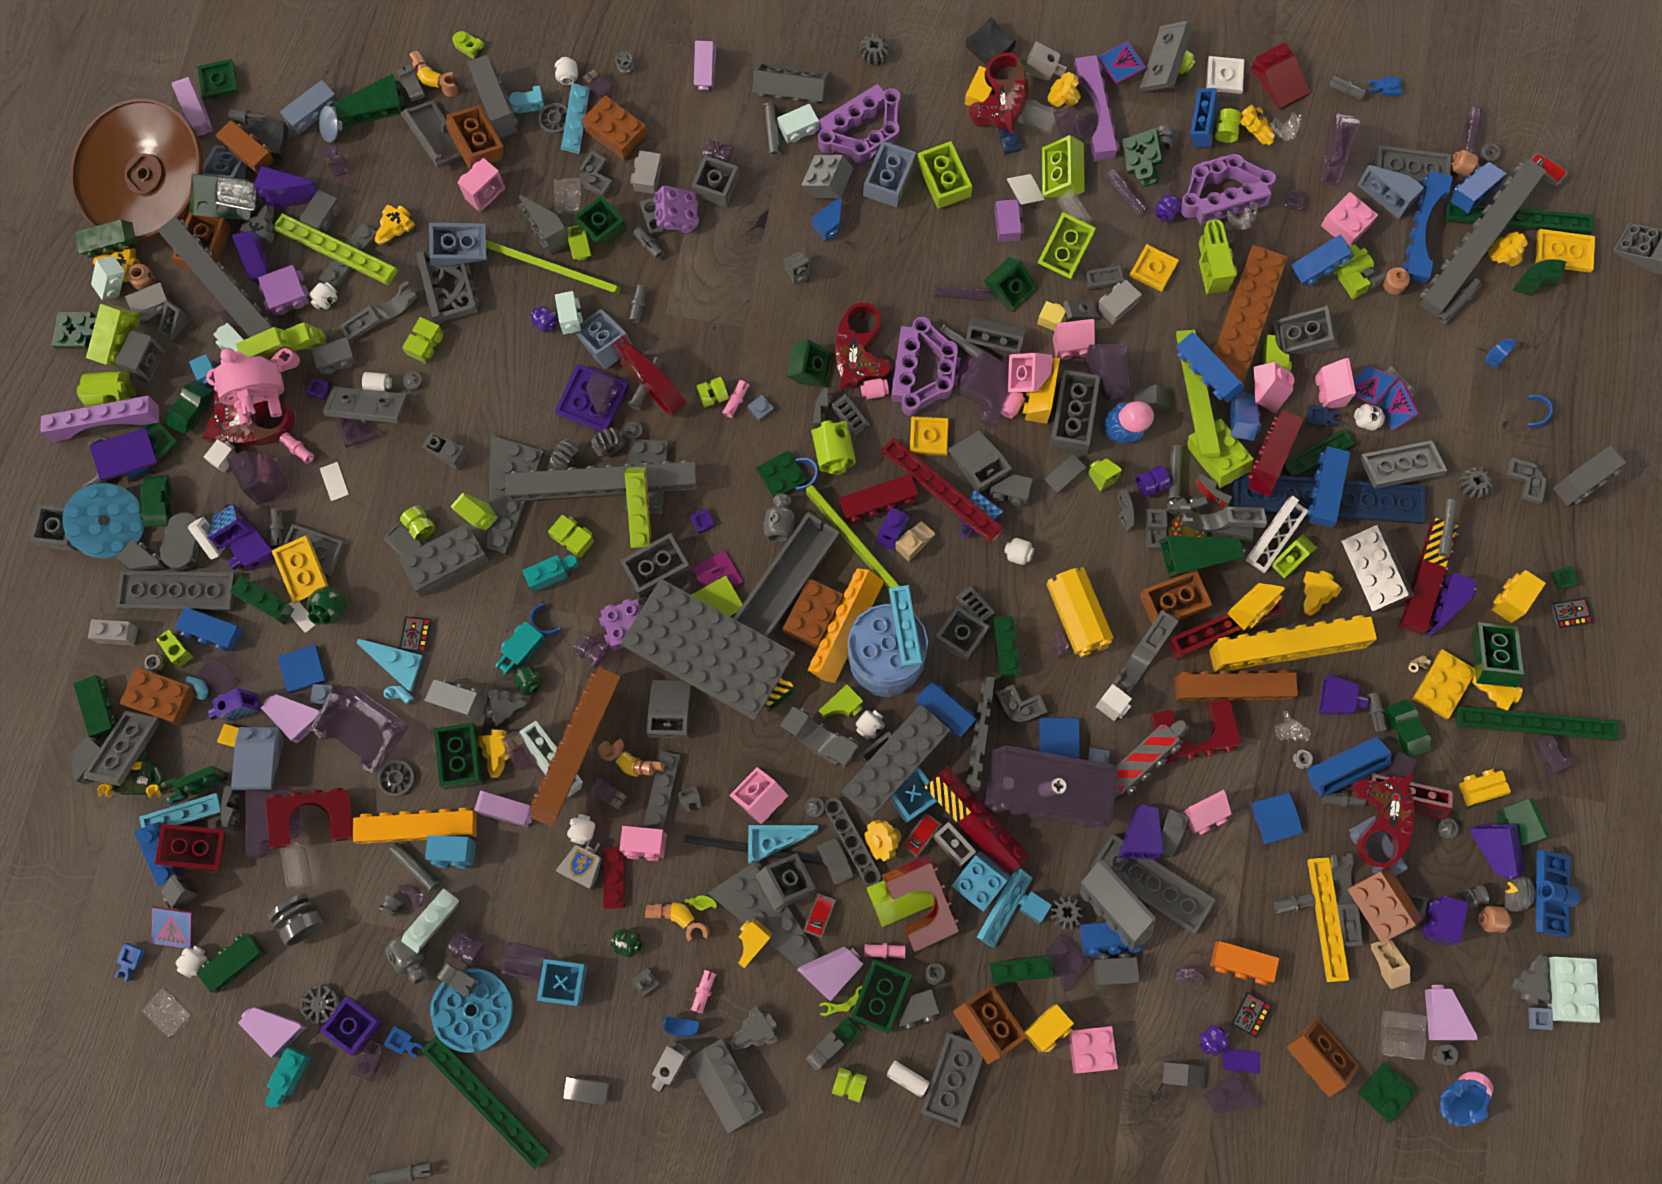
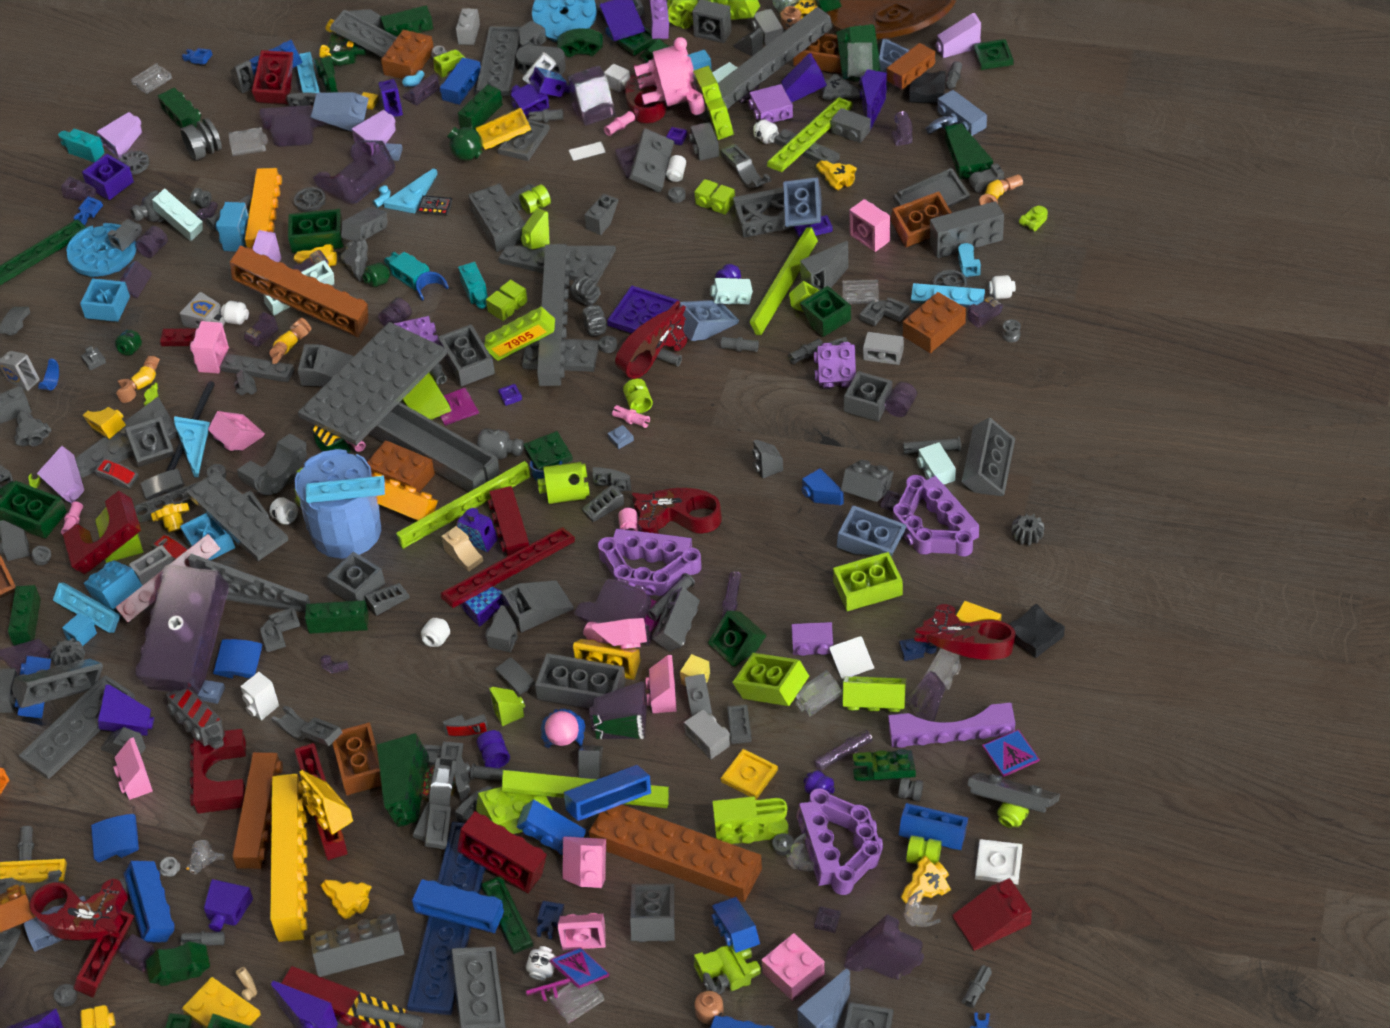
camera: 95 degrees right, 25 degrees down
(171, 927) = (216, 75): piece -> none
(190, 961) = (187, 87): white head -> none
(301, 668) = (417, 138): blue tile -> none
(333, 803) = (288, 119): dark red arch -> none
(600, 392) = (640, 309): clear purple slope -> none
(703, 991) = (73, 394): bright pink pin -> none
(704, 64) = (1008, 388): lavender slope -> none
(810, 364) = (659, 471): dark green slope -> none
(929, 436) = (574, 568): yellow tile -> none
(946, 709) = (287, 565): blue brick -> none
(1043, 62) = (1007, 674): light grey torso -> none
(1064, 91) = (969, 694): yellow plant -> none
(1080, 612) = (358, 673): yellow brick -> none
(1272, 353) = (621, 874): lime arch -> none
(1273, 529) = (417, 849): white fence -> none
(1293, 556) = (391, 876): lime slope -> none

